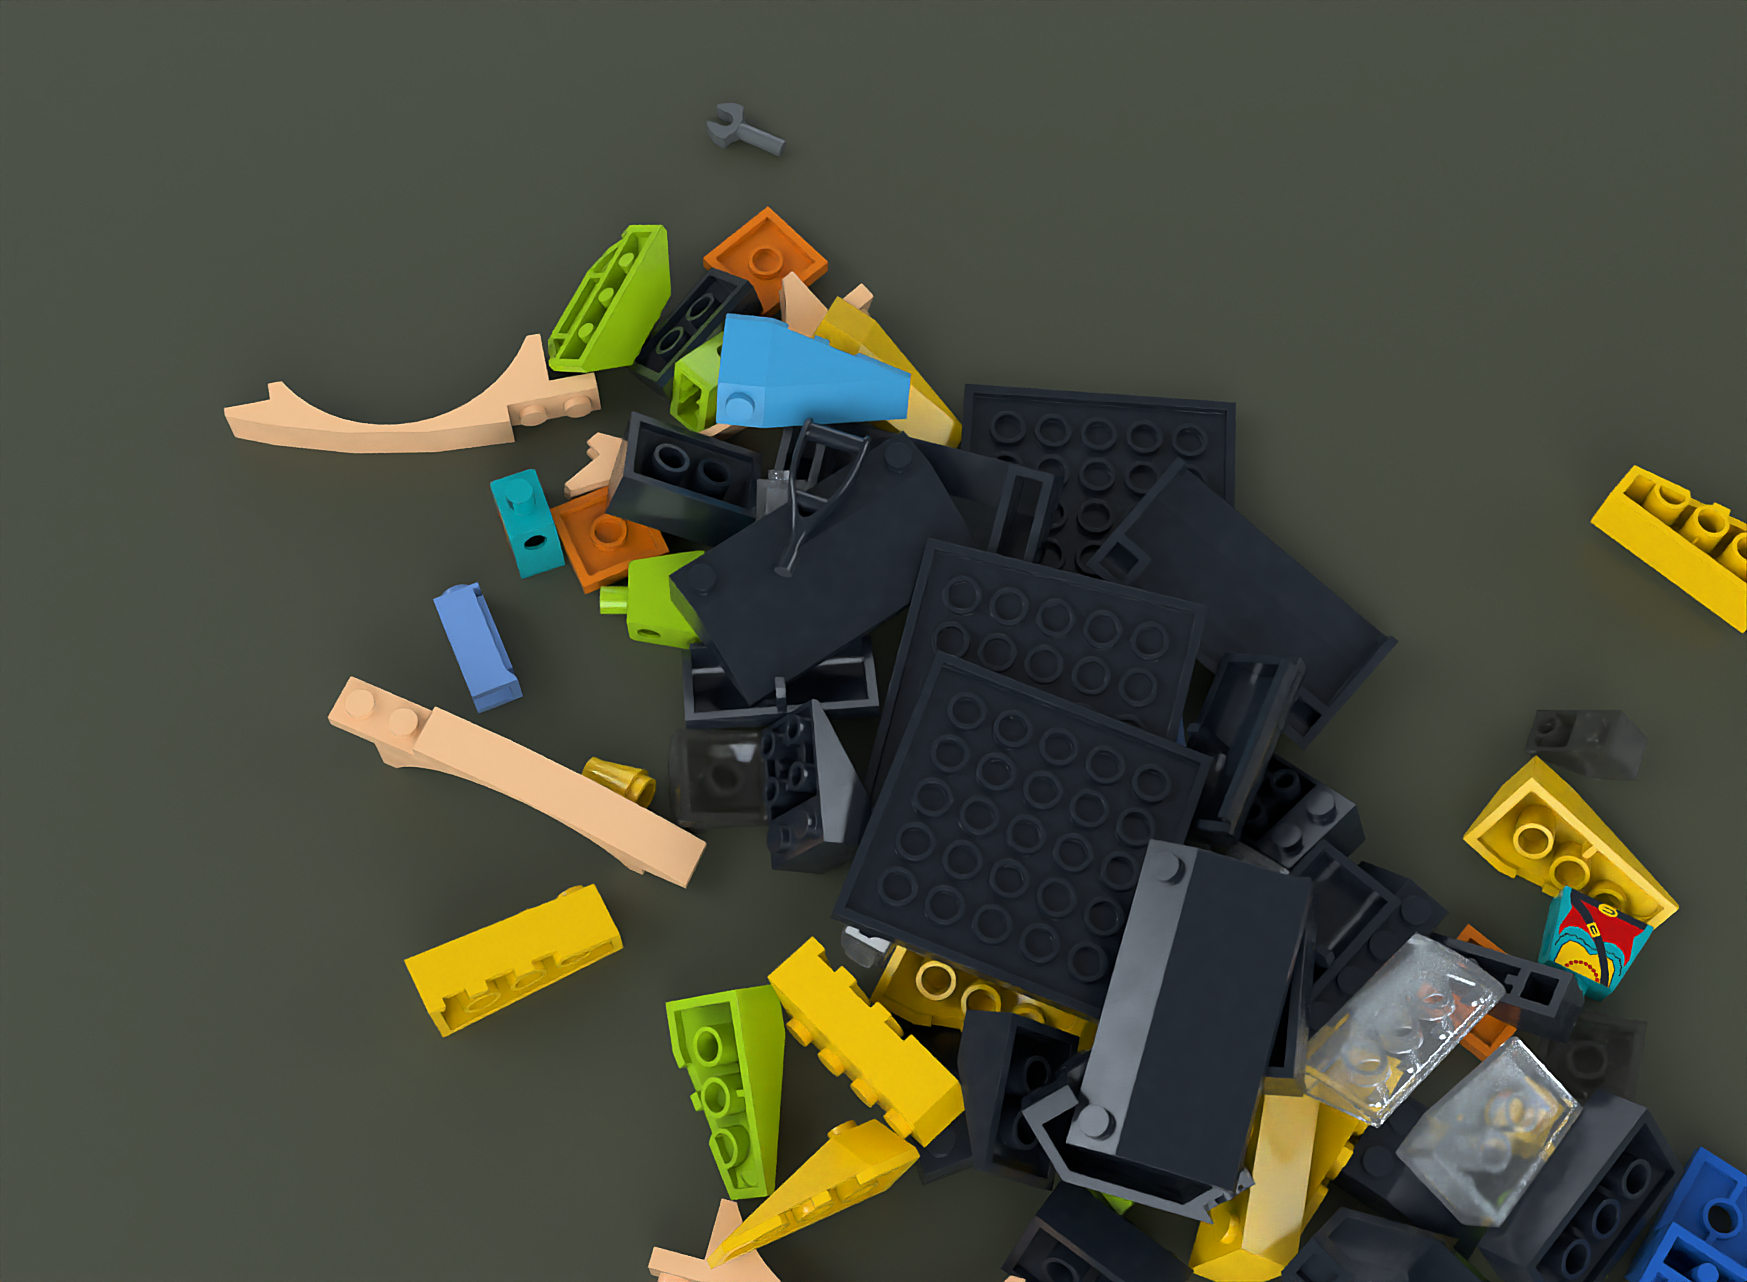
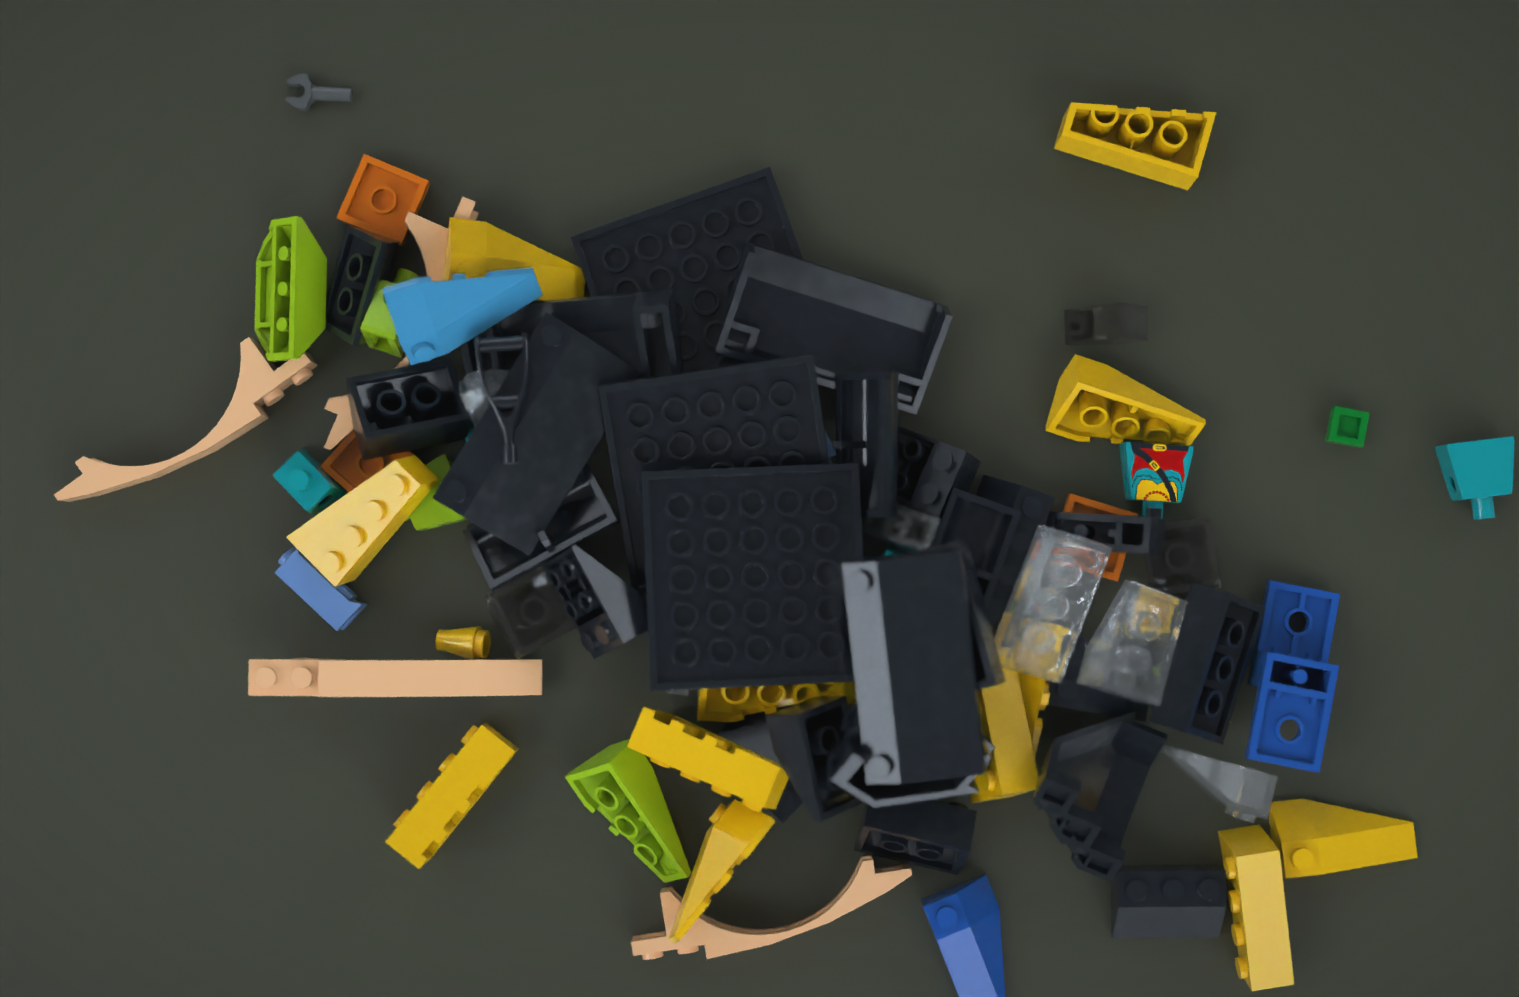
camera: 20 degrees left, 20 degrees up
(572, 579) = (361, 522): none -> yellow wedge

